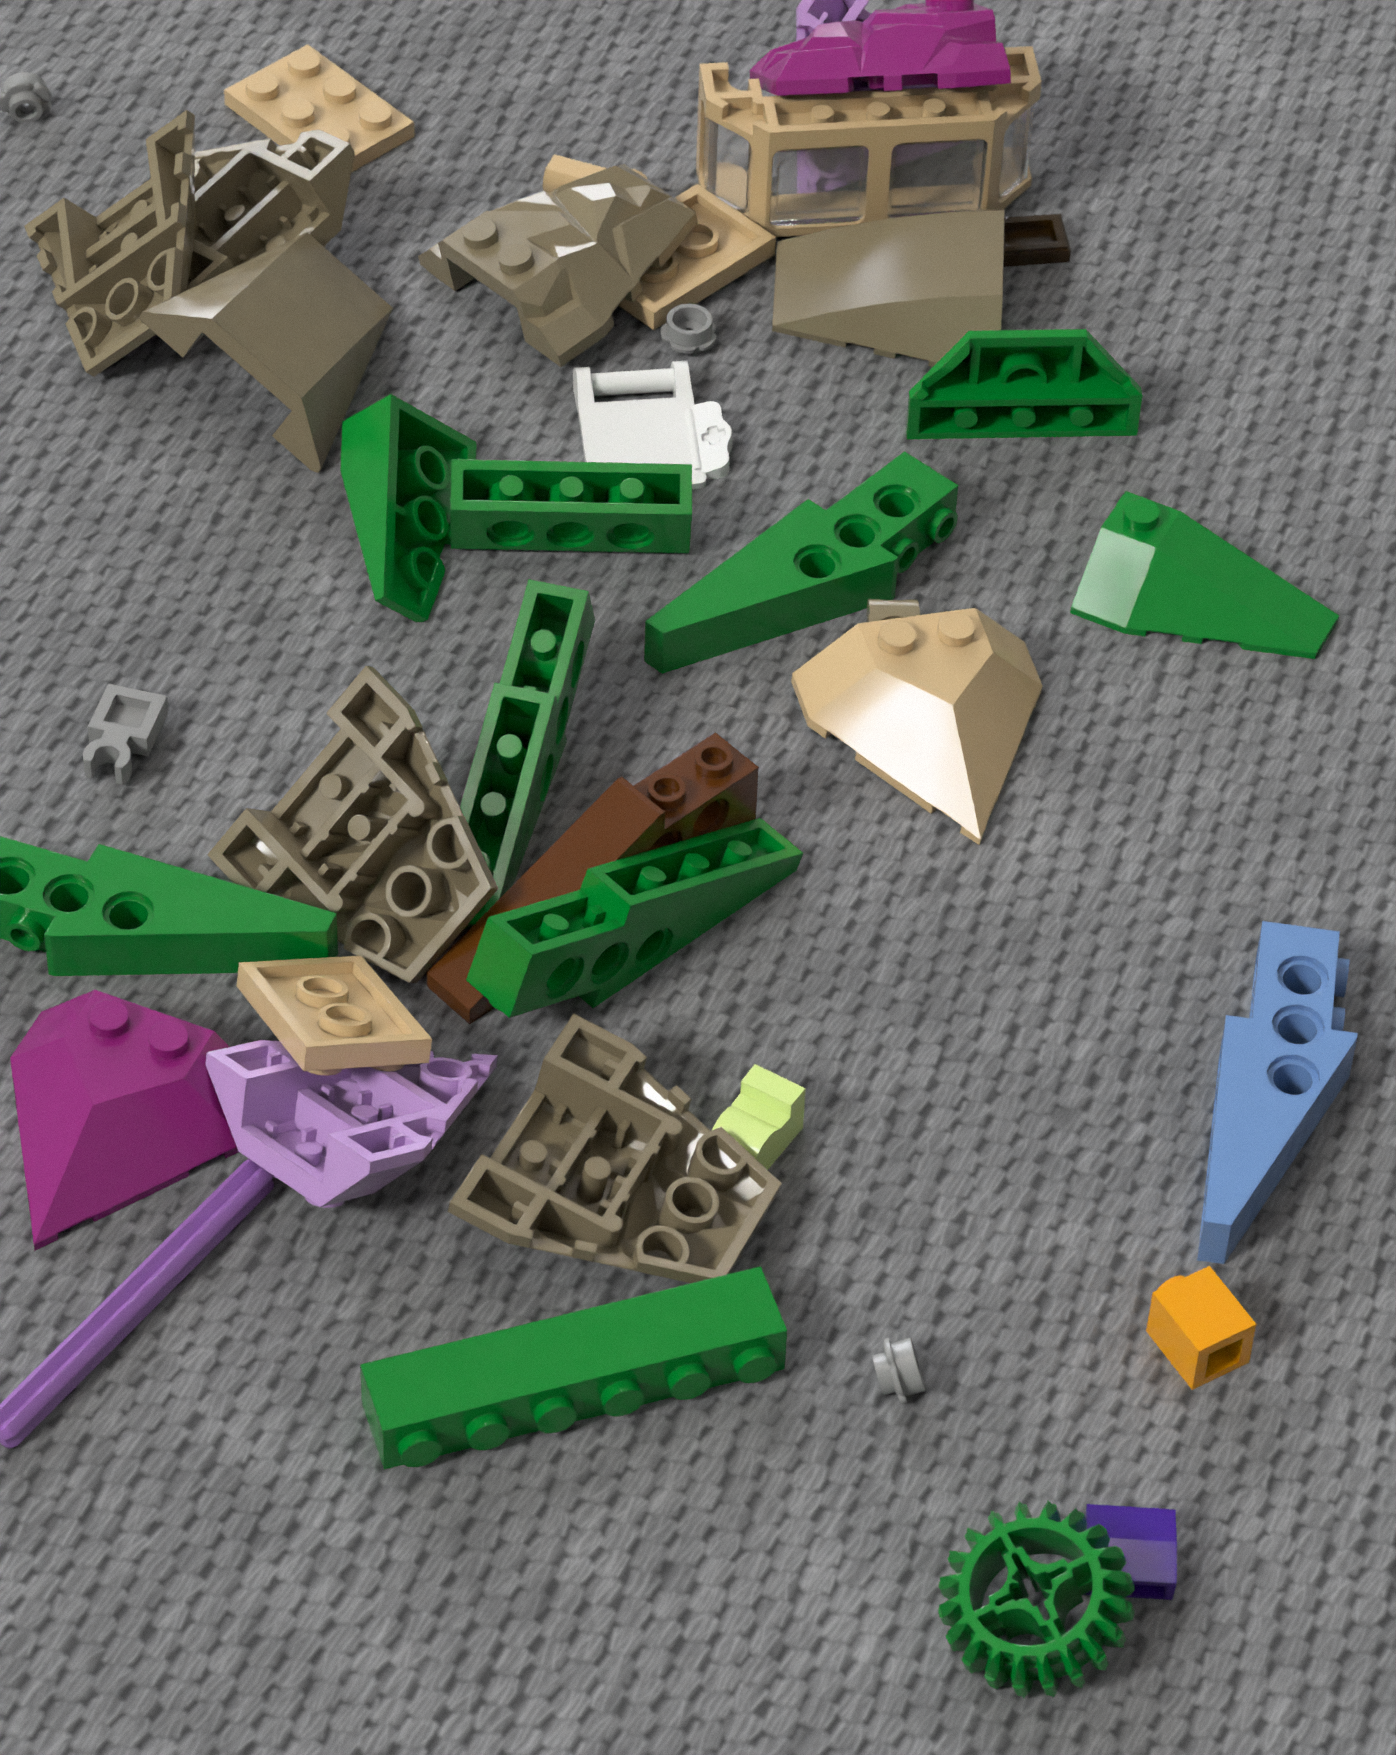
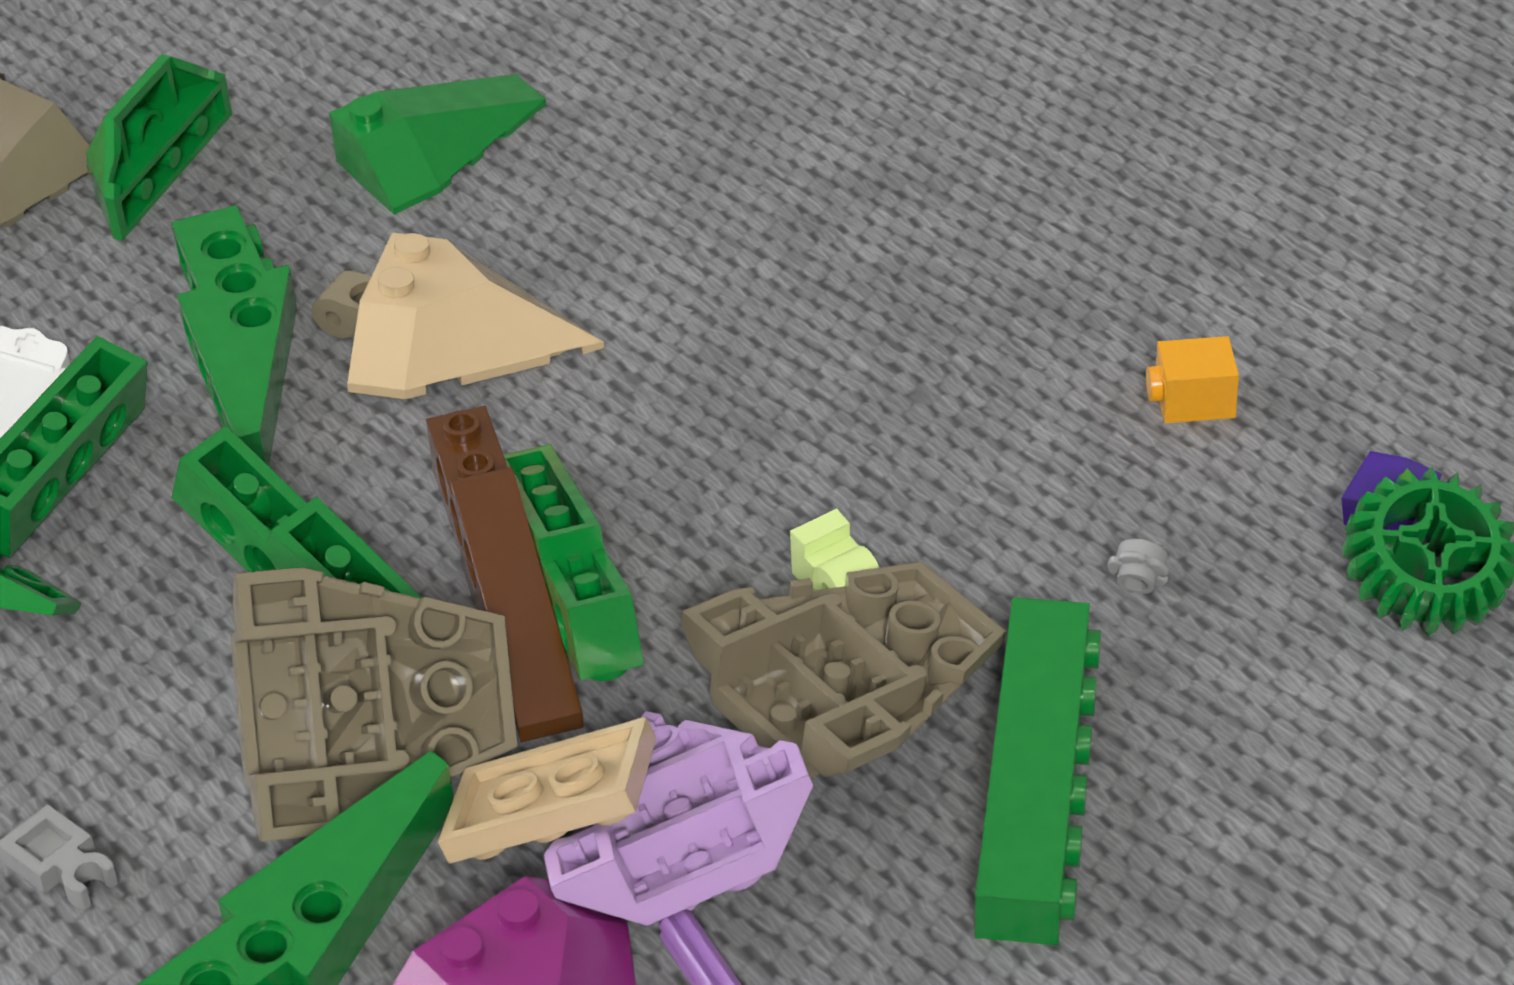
camera: 60 degrees left, 5 degrees down
(1274, 1077) = (975, 262): medium blue brick -> none

